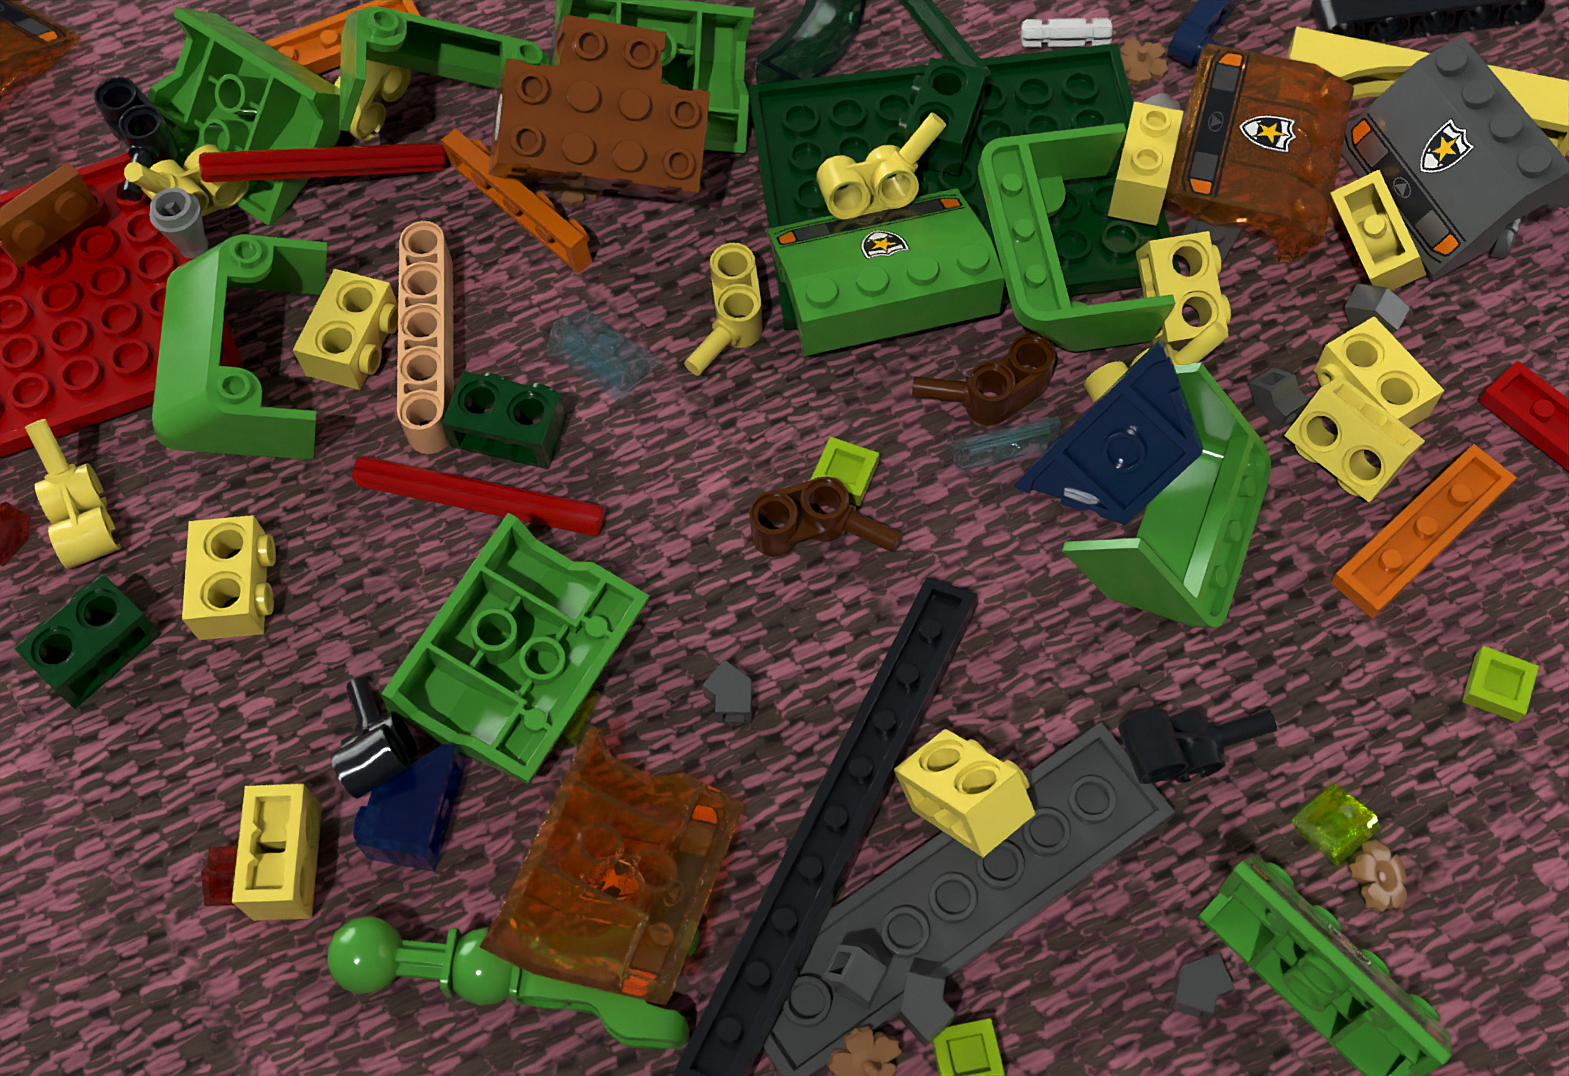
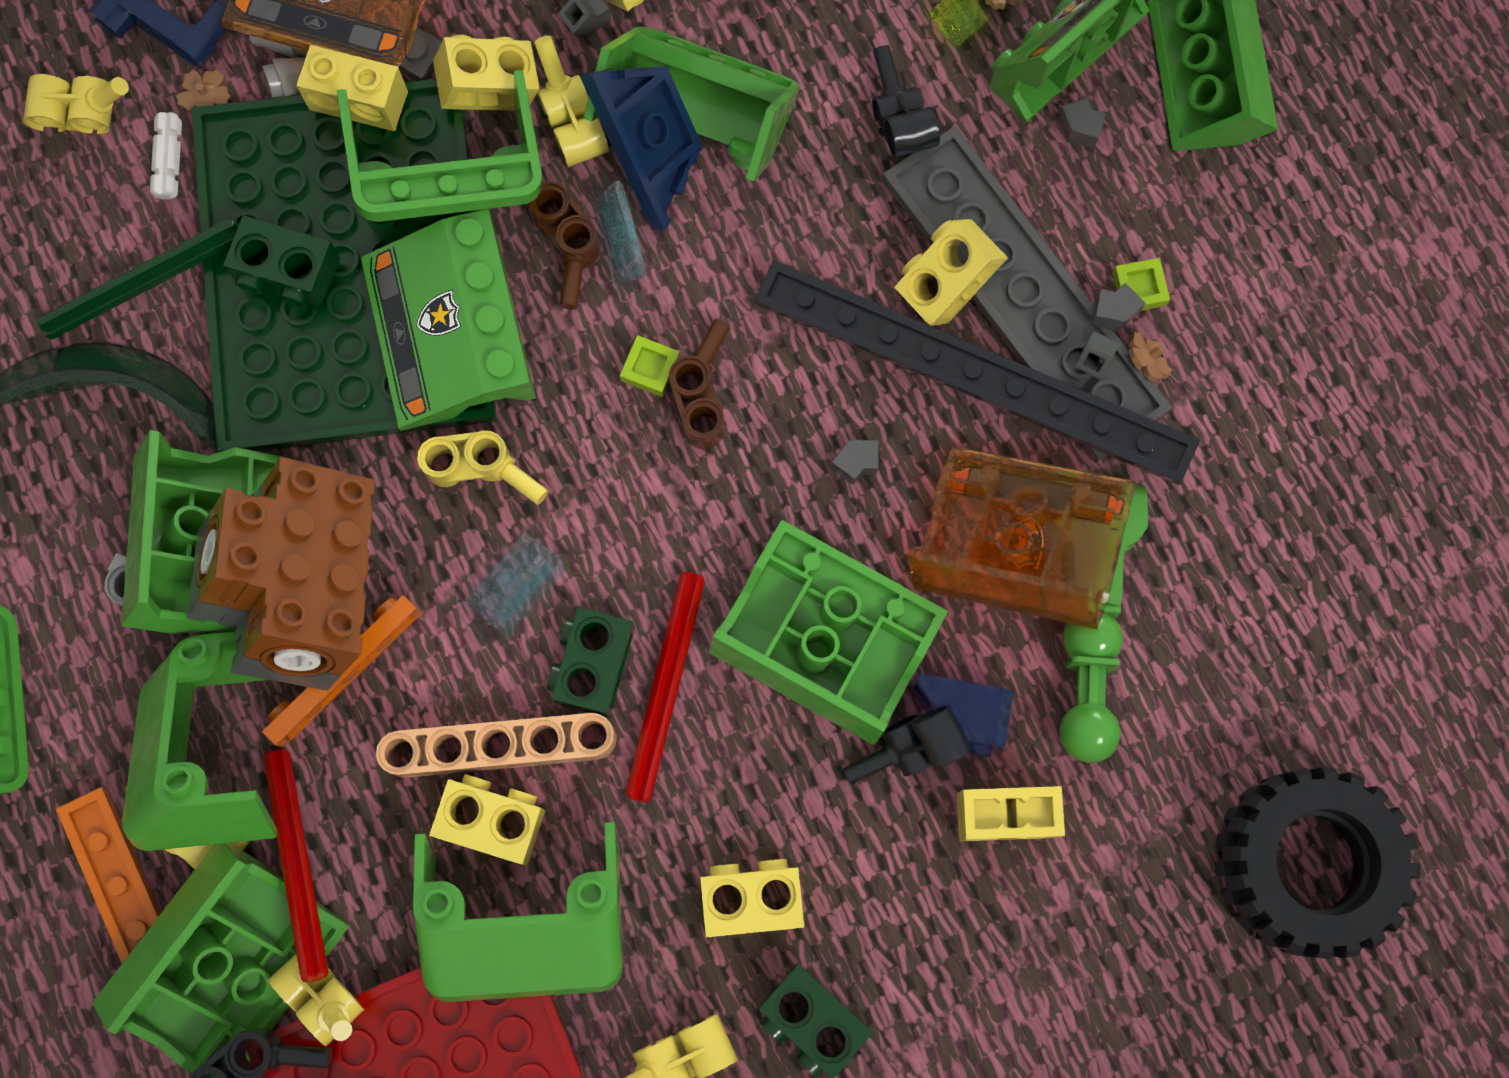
camera: 95 degrees left, 15 degrees up
(179, 220) = (362, 997): light grey cone -> none
(219, 876) = (1023, 861): clear red piece -> none
(867, 181) = (359, 316): light yellow beam -> none

